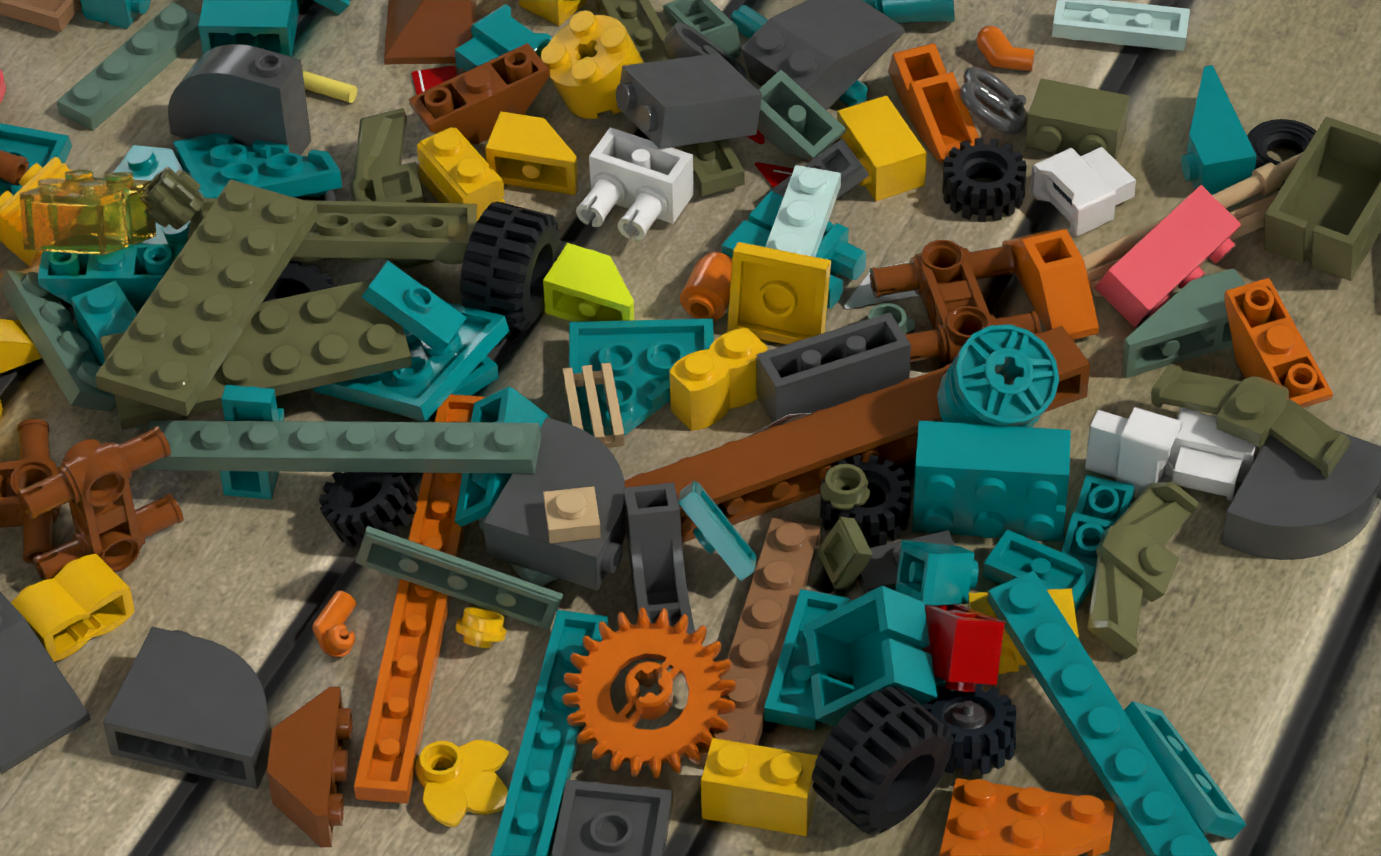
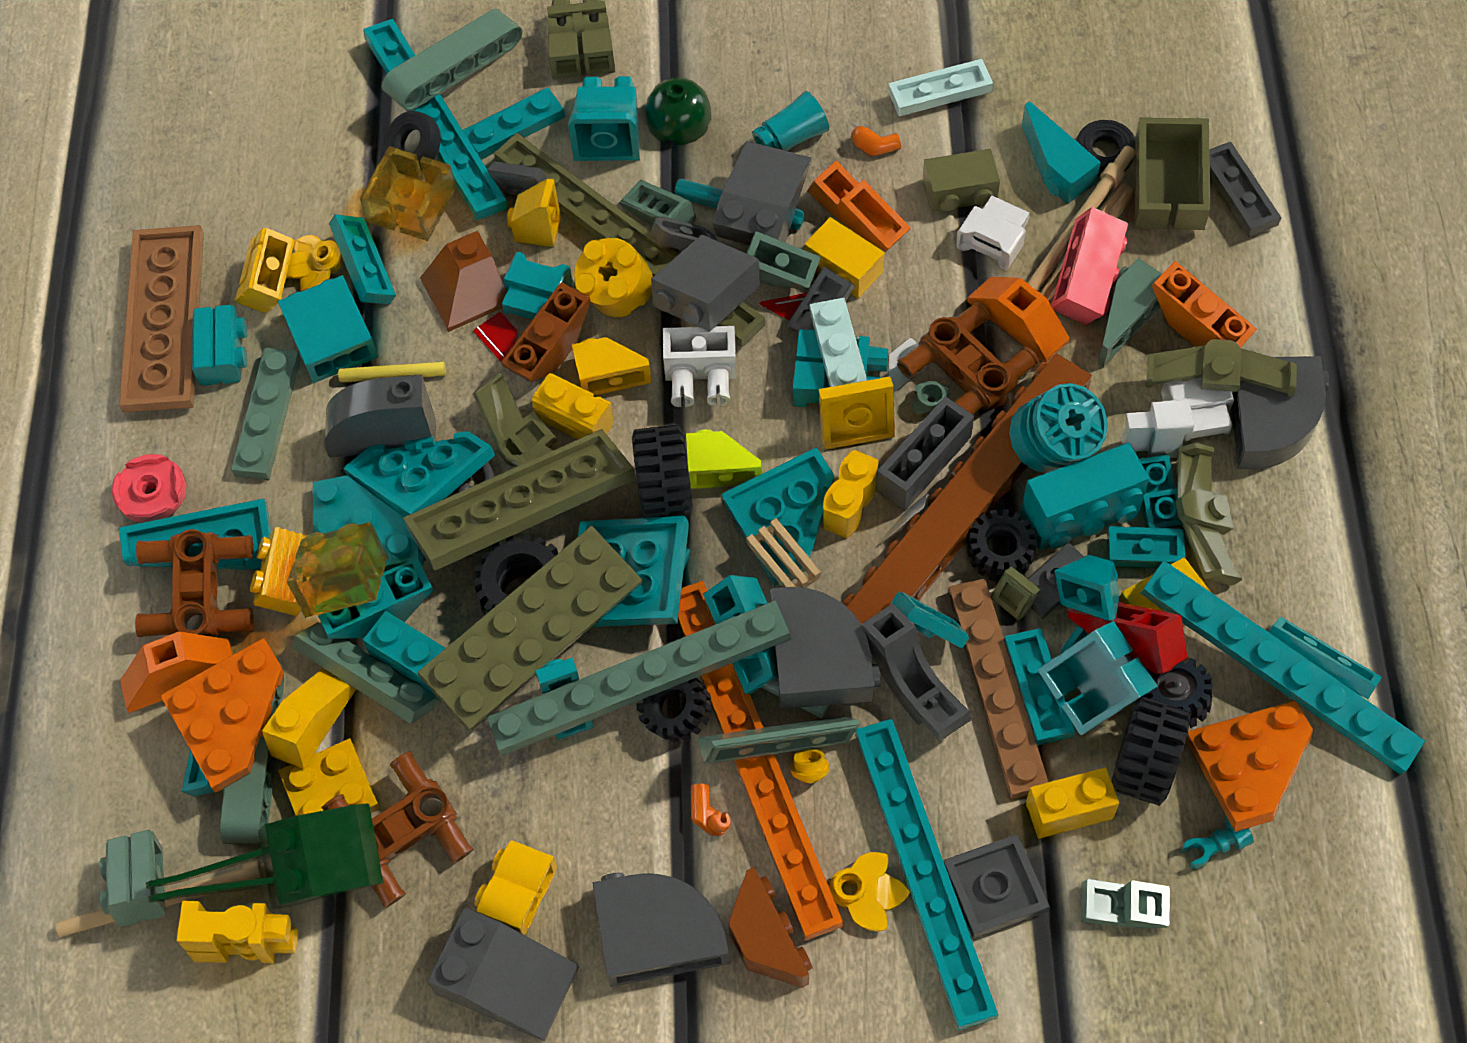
camera: 25 degrees left, 15 degrees up
(101, 502) = (500, 806): dark orange piece -> none
(172, 198) = (395, 530): olive gear -> none
(207, 297) = (480, 606): olive plate -> none
(414, 307) = (625, 542): teal plate -> none
(572, 514) = (840, 662): tan plate -> none
(683, 656) = (972, 733): orange gear -> none
(708, 287) = (797, 421): orange brick -> none
(845, 487) = (998, 539): olive plate -> none
(981, 197) = (930, 237): black tyre -> none
(993, 101) = (899, 185): dark grey piece -> none

